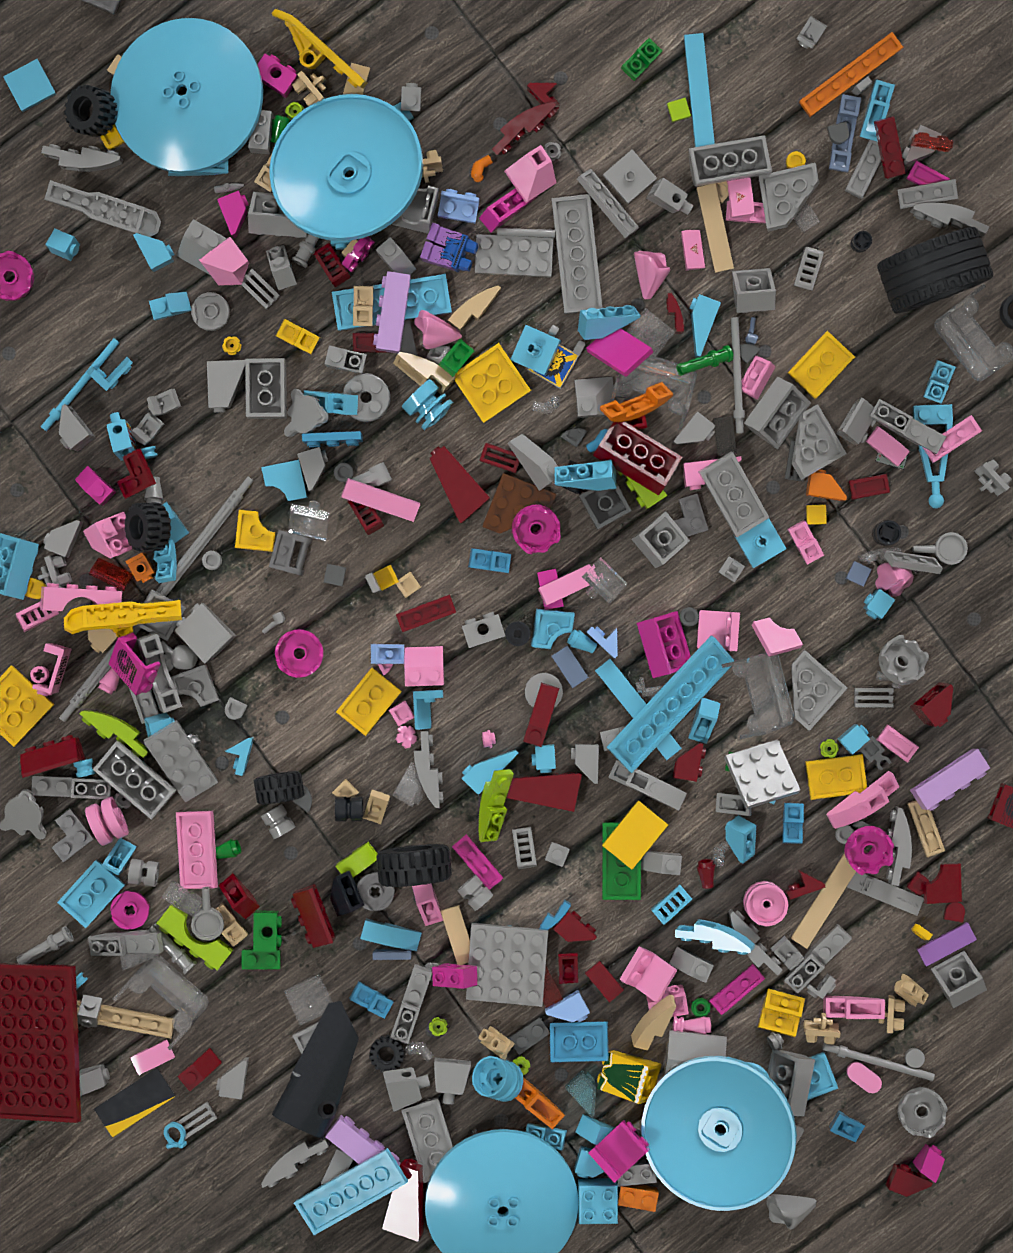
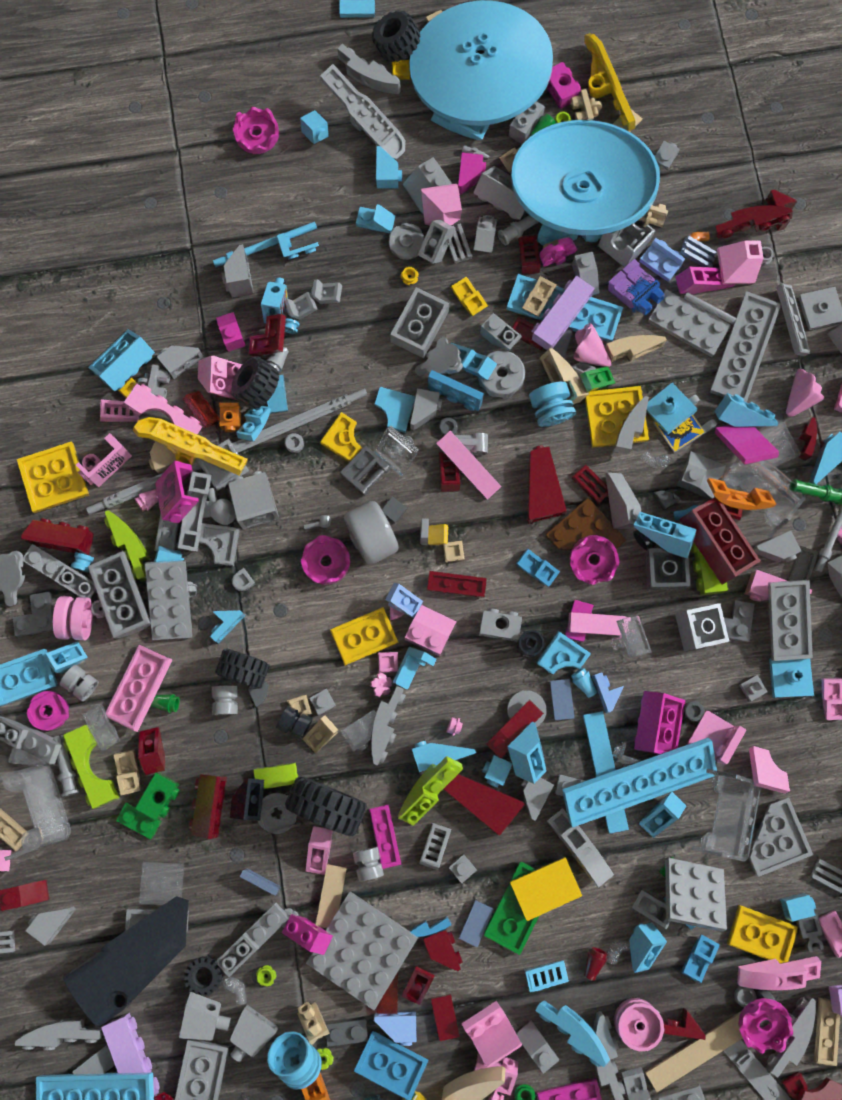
camera: 30 degrees right, 10 degrees down
(207, 921) = (110, 758): light grey piece -> none
(223, 383) = (386, 301): light grey slope -> none
(240, 302) = (436, 241): none -> light grey brick
(326, 610) = (371, 532): none -> light grey wheel
(363, 777) = (322, 702): none -> light grey plate
(371, 999) = (218, 915): dark azure slope -> none
(390, 935) = (268, 862): medium azure slope -> none
(502, 181) = (698, 249): none -> sand blue tile
(509, 388) = (632, 427): none -> light grey slope
(563, 731) = (528, 755): none -> medium azure slope
(591, 892) = (476, 923): none -> sand blue tile
(662, 862) = (558, 930): light grey slope -> none
(688, 763) = (628, 848): dark red slope -> none
(824, 748) = (764, 899): lime plate -> none

